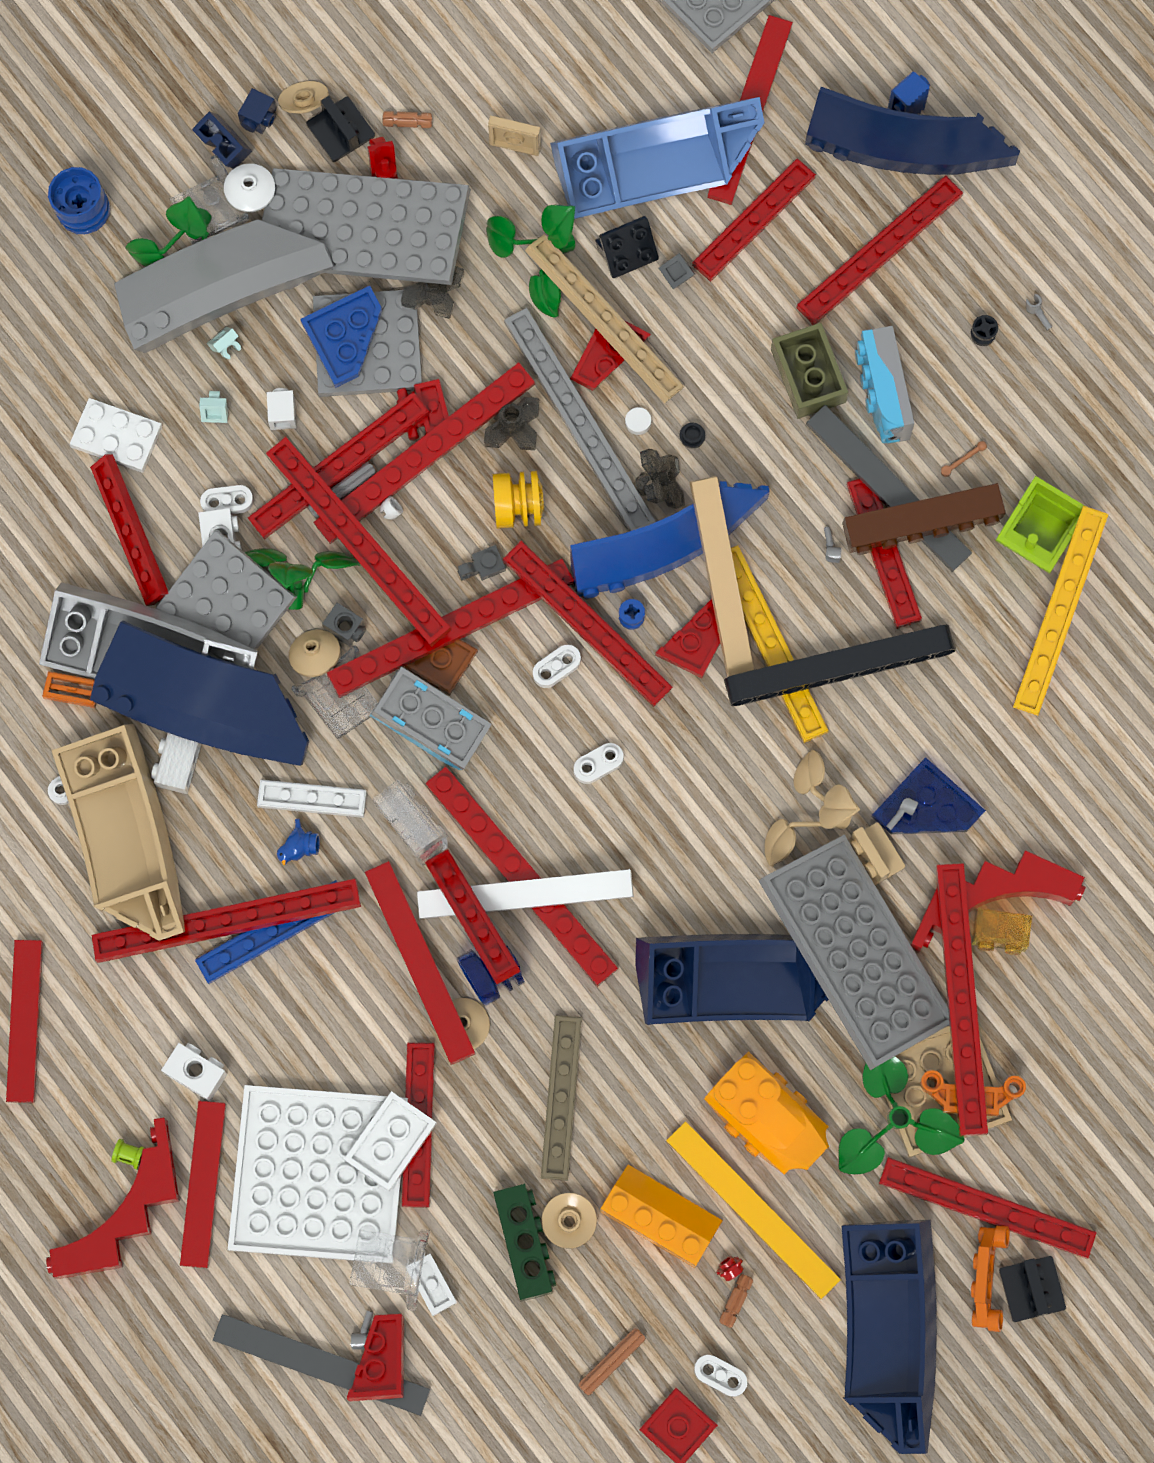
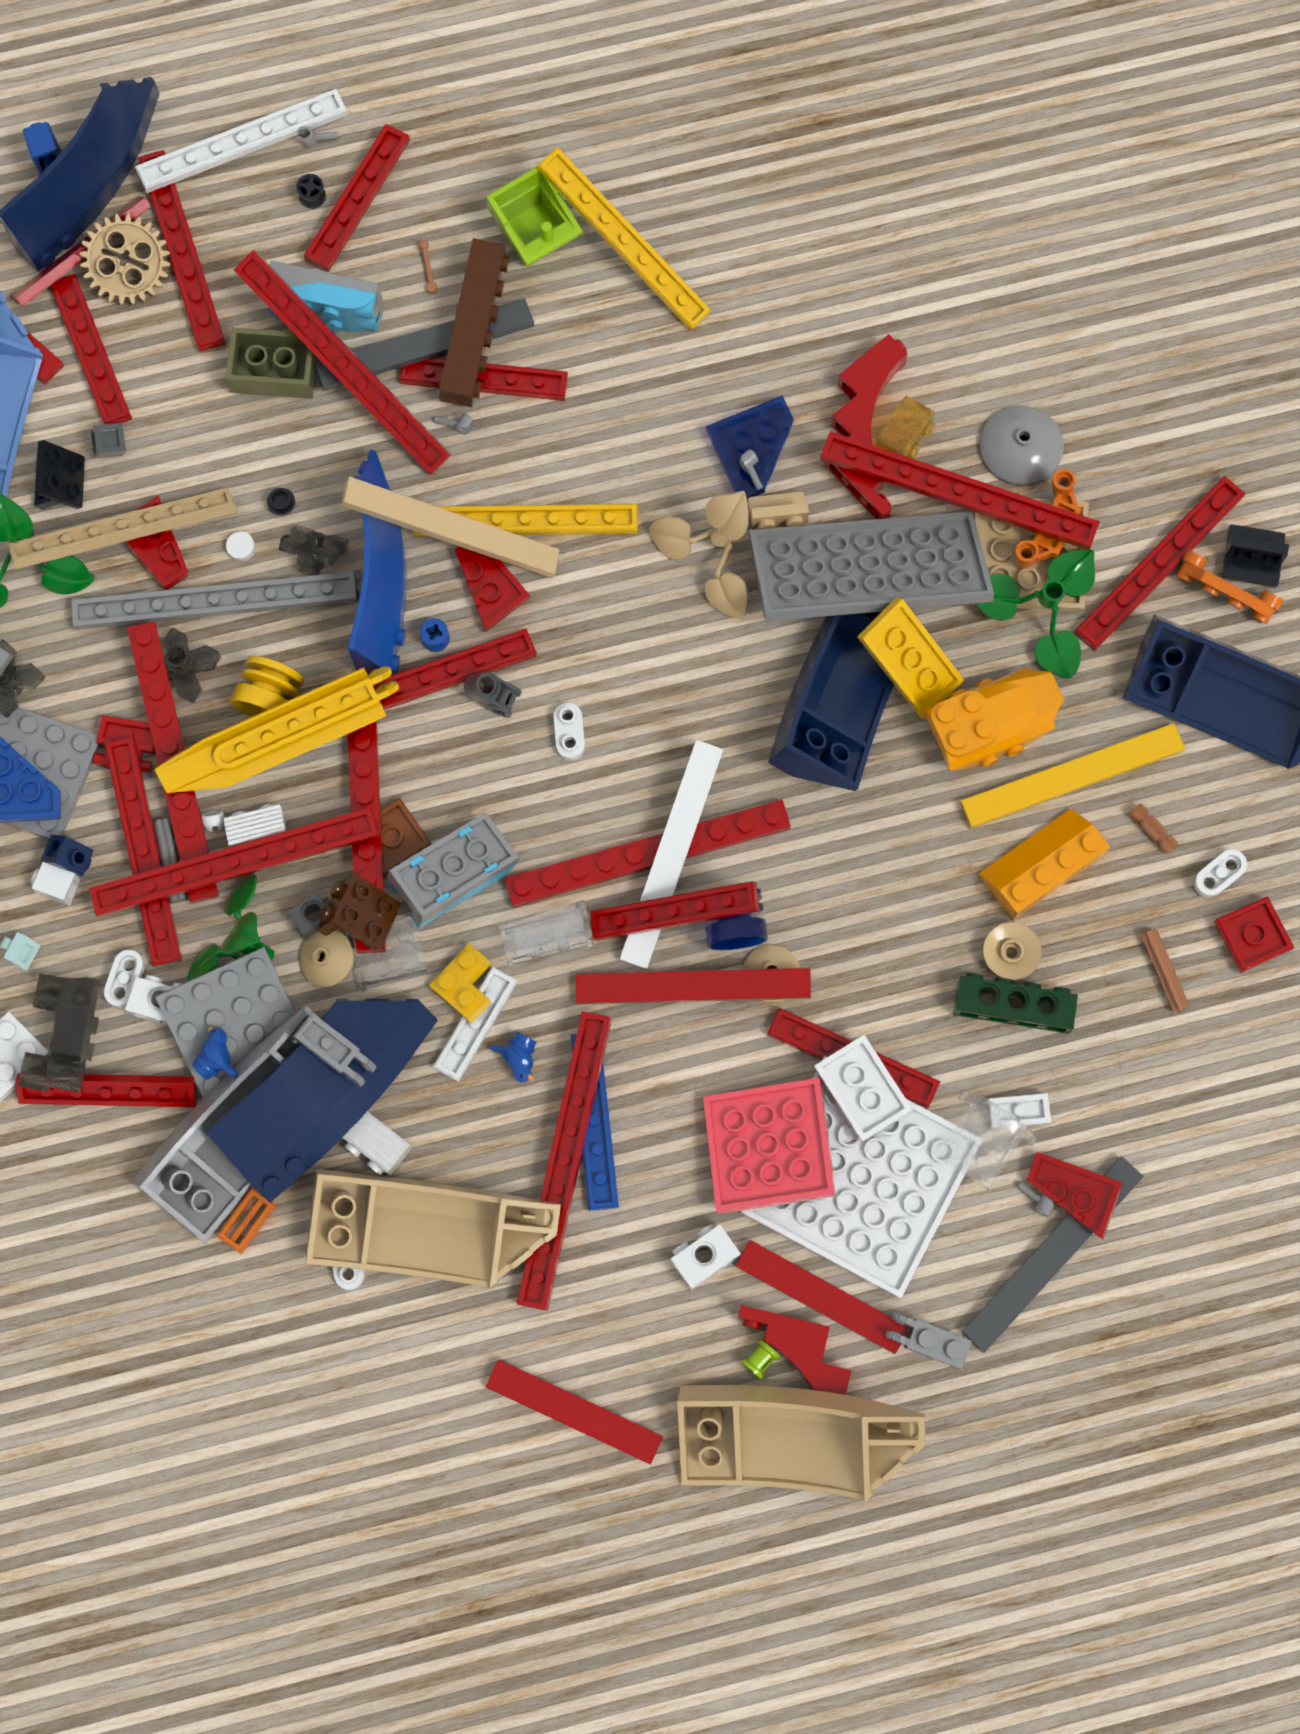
camera: 65 degrees left, 0 degrees up
(69, 1203) = (792, 1439): none -> tan slope
(169, 478) = (69, 1047): none -> clear smoke bracket
(188, 599) = (214, 1055): none -> blue animal
(202, 1290) = (931, 1341): none -> light grey hinge
(229, 688) = (332, 1048): none -> light grey hinge
(307, 407) = (67, 854): none -> dark blue brick
(308, 1083) = (769, 1146): none -> coral plate
(339, 767) = (457, 982): none -> yellow plate
(358, 660) = (359, 911): none -> reddish brown bracket
(398, 544) = (255, 824): none -> white brick
(481, 527) = (279, 733): none -> yellow hinge
(485, 563) = (314, 760): dark grey plate -> none
(555, 666) = (453, 730): white plate -> none
(561, 1098) = (886, 909): dark tan tile -> none
(601, 688) = (497, 693): none -> dark grey piece
(730, 1268) = (1121, 819): red plate -> none
(788, 1020) = (910, 657): none -> yellow plate
(831, 427) = (342, 362): none -> red plate
(837, 169) = (71, 257): none -> tile
(839, 665) = (579, 464): black beam -> none
(867, 204) = (134, 236): none -> tan gear
(997, 371) = (357, 197): none -> red plate
(1002, 252) = (240, 141): none -> white tile
(1028, 1053) = (1018, 460): none -> light grey dish

